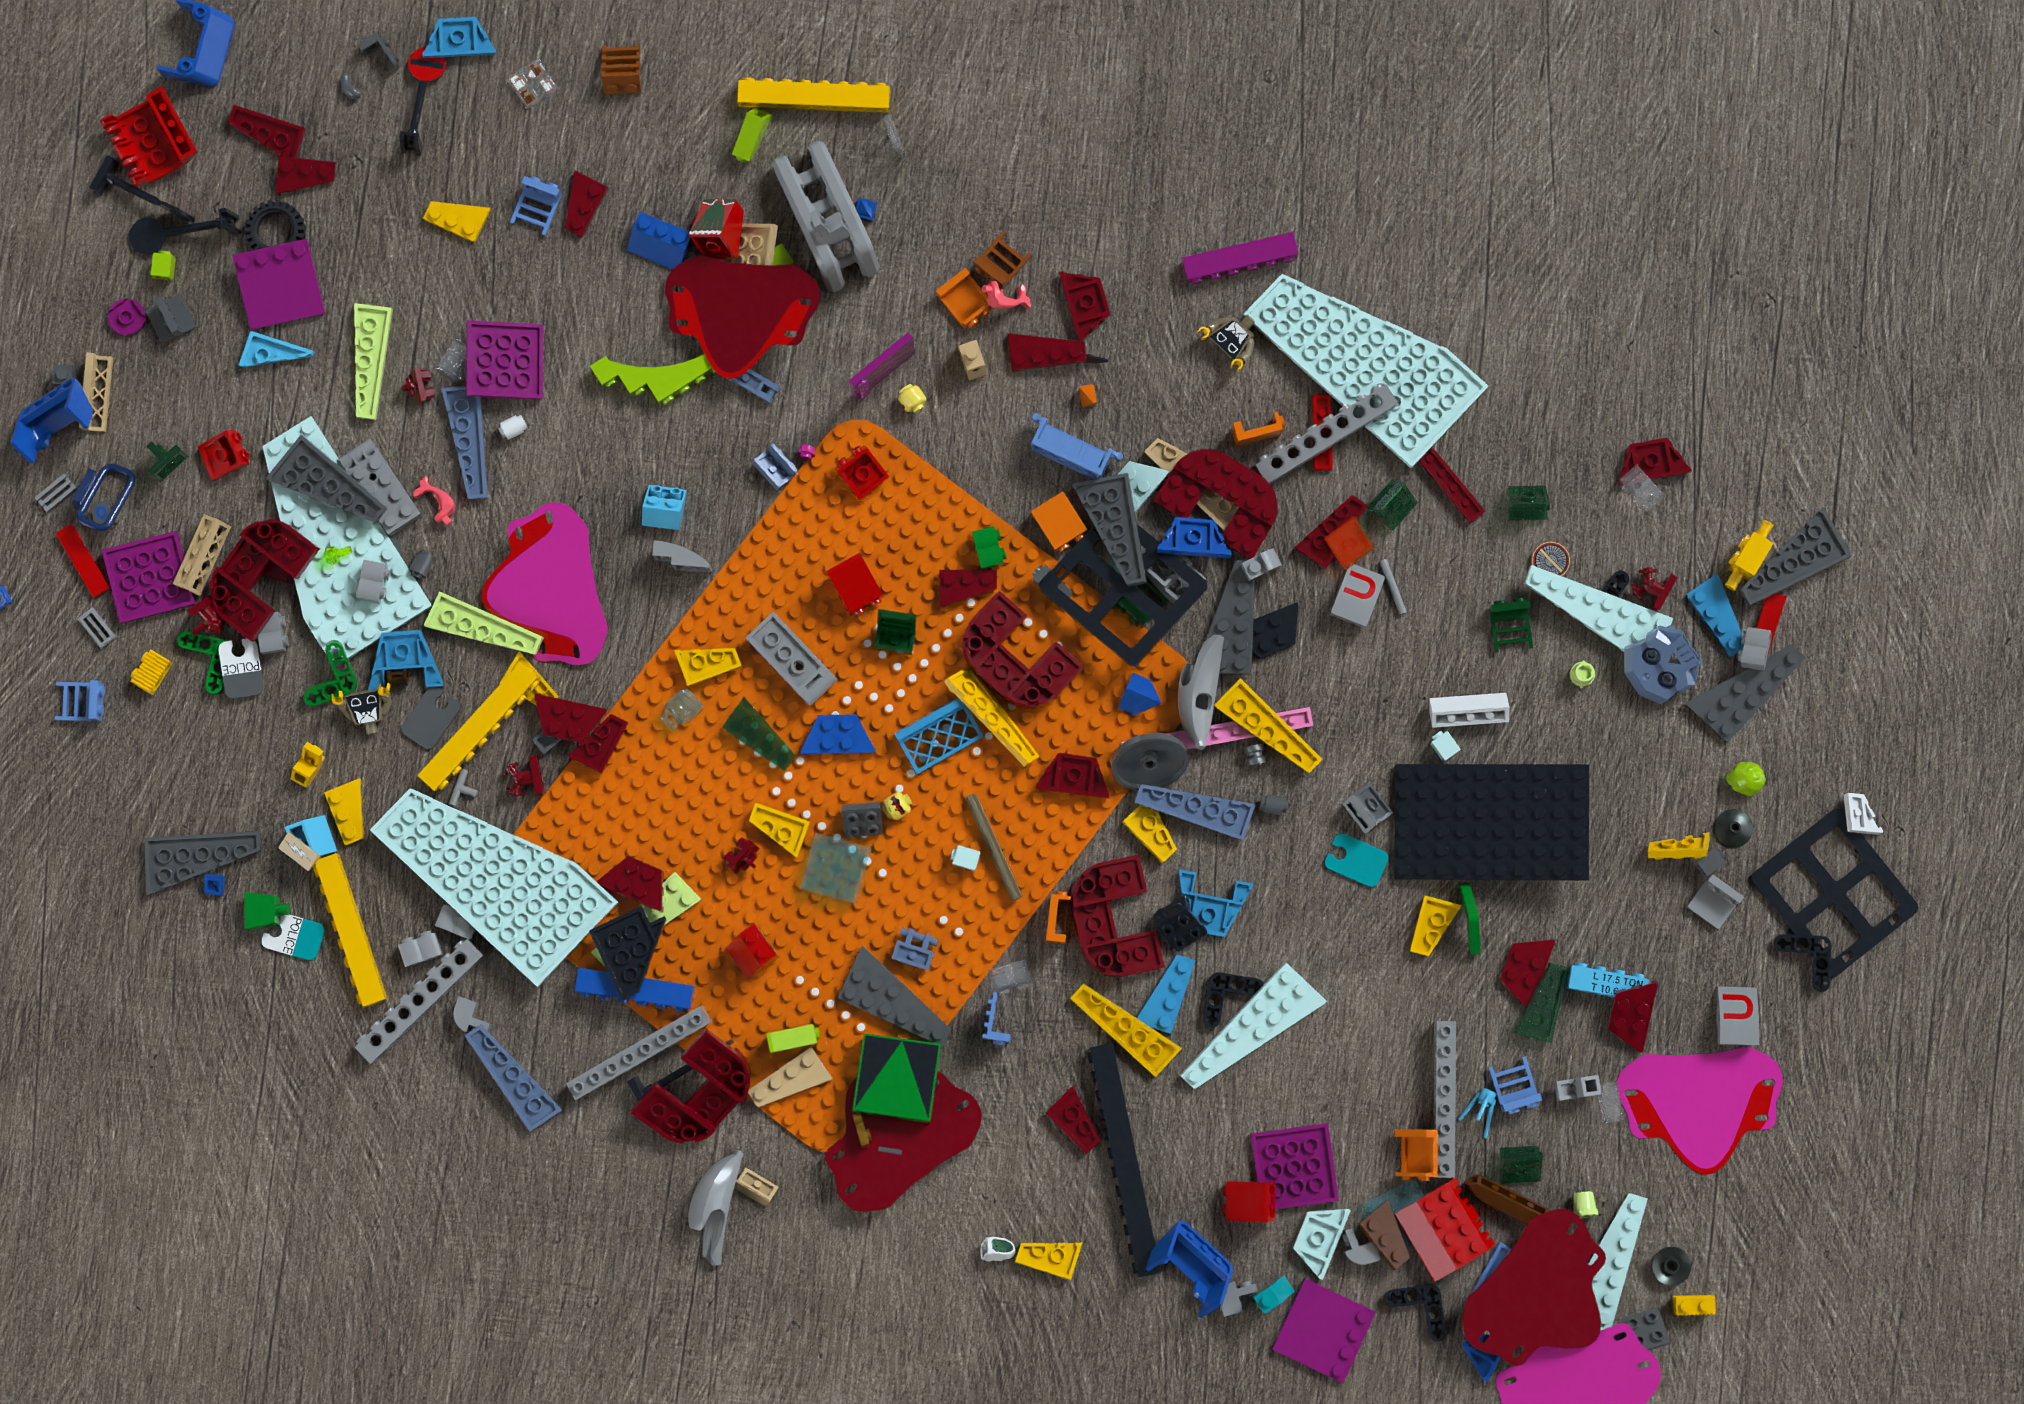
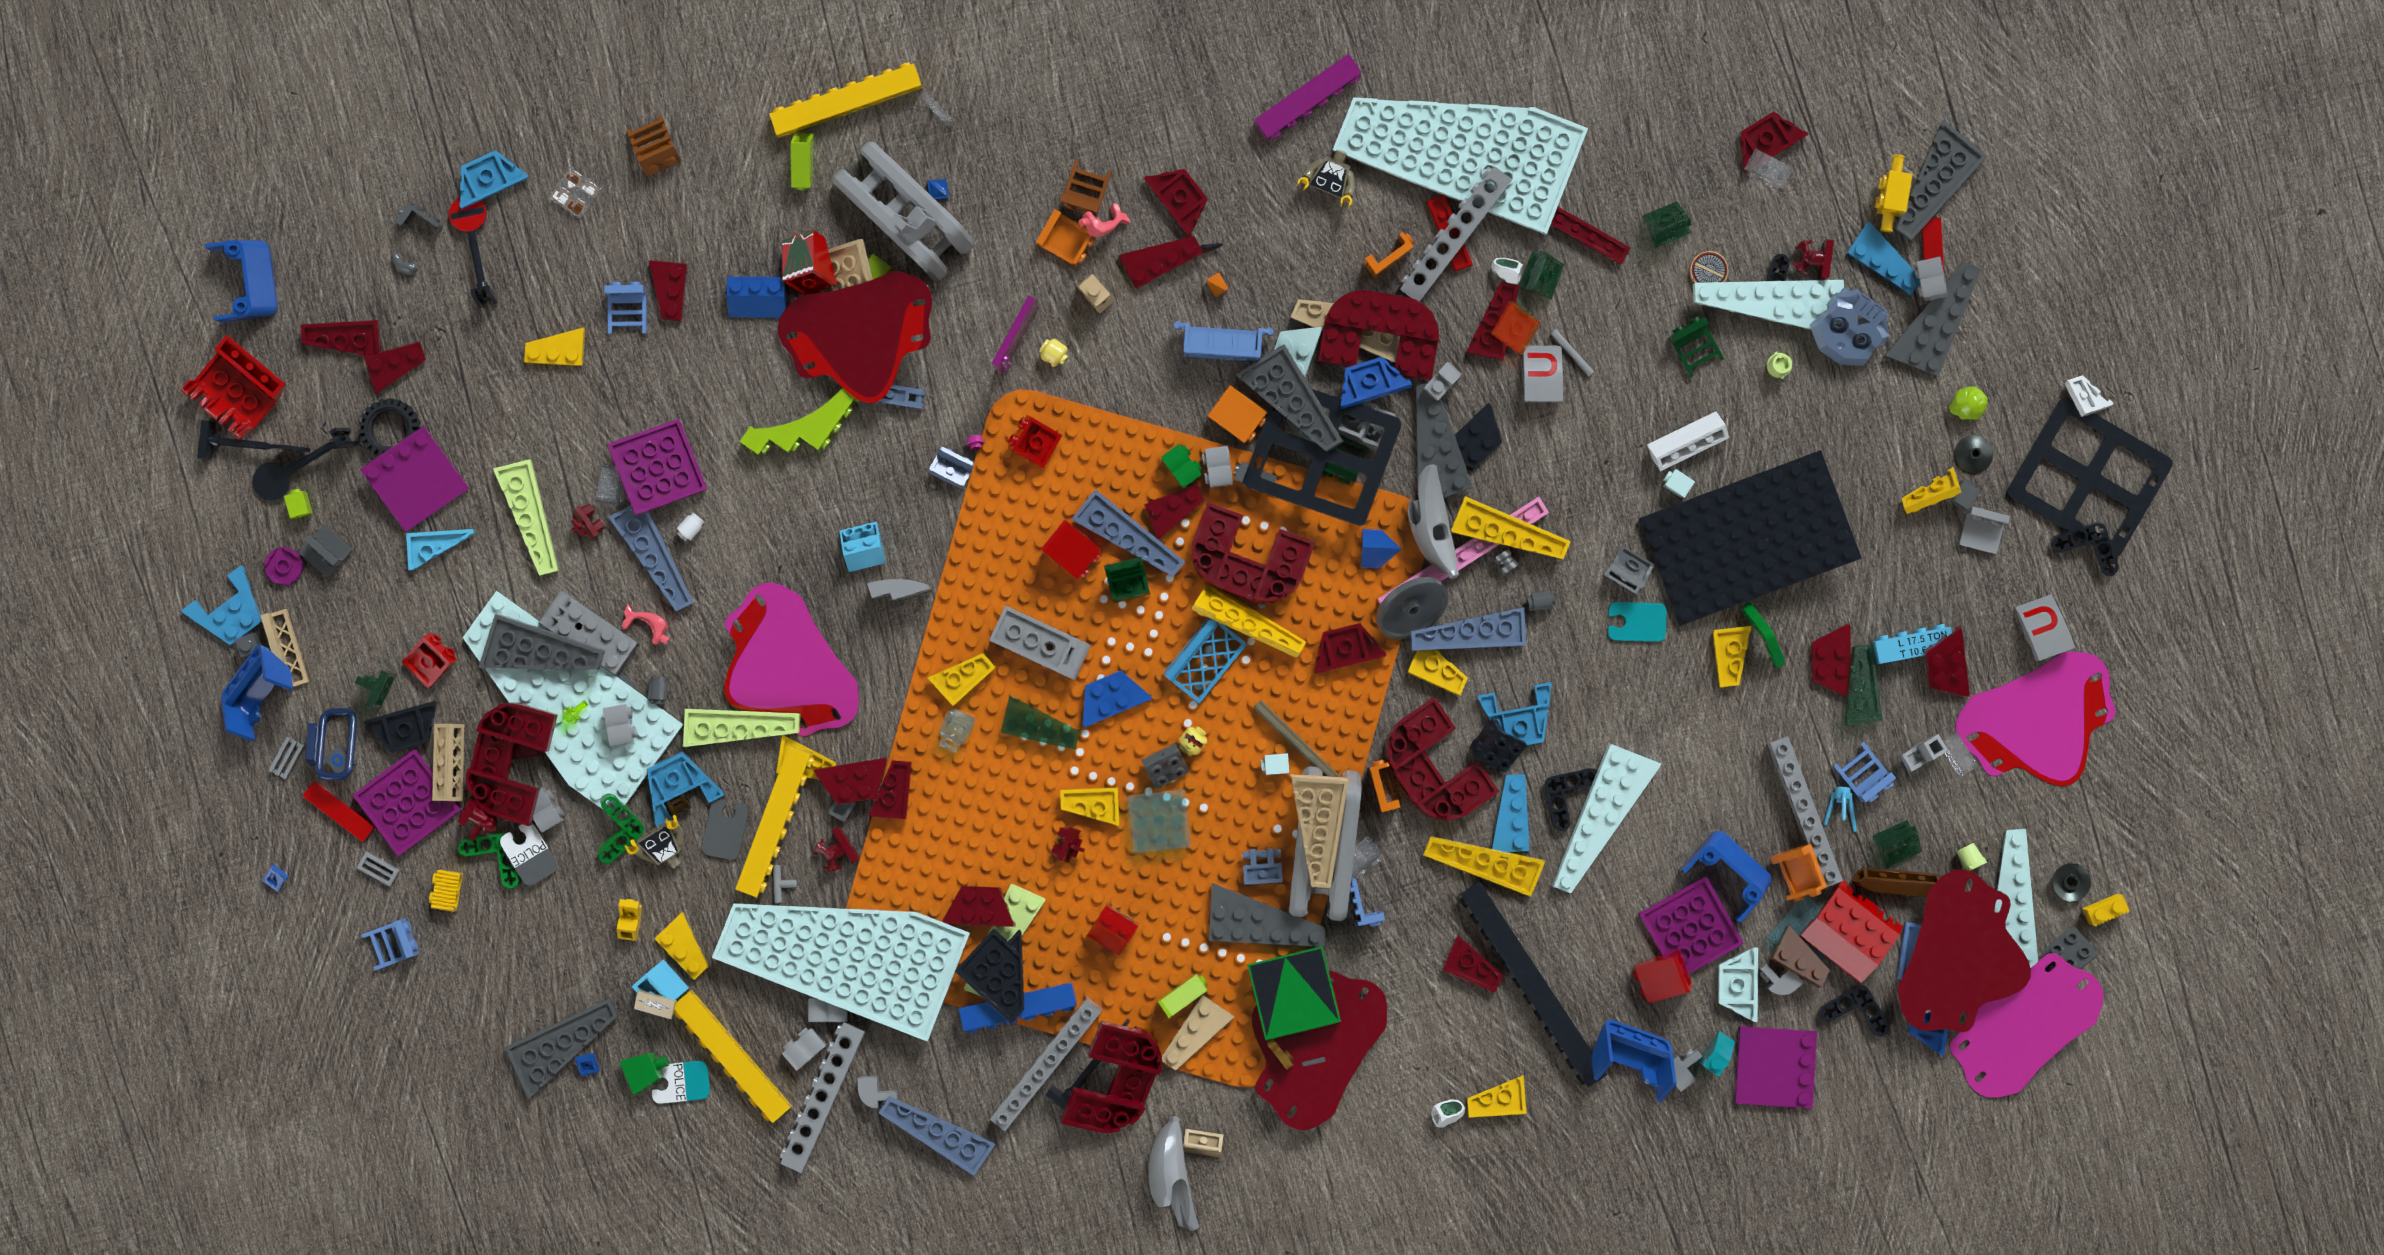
camera: 20 degrees left, 5 degrees up
(63, 345) = (232, 618): none -> dark azure wing
(175, 507) = (404, 727): none -> black wing
(905, 580) = (1114, 525): none -> sand blue wing
(964, 946) = (1343, 866): none -> light grey beam
(986, 916) = (1320, 814): none -> tan wing
(1022, 562) = (1218, 466): none -> light grey brick
(1354, 1101) = (1721, 846): none -> blue windscreen
(1363, 487) = (1508, 269): none -> white rock

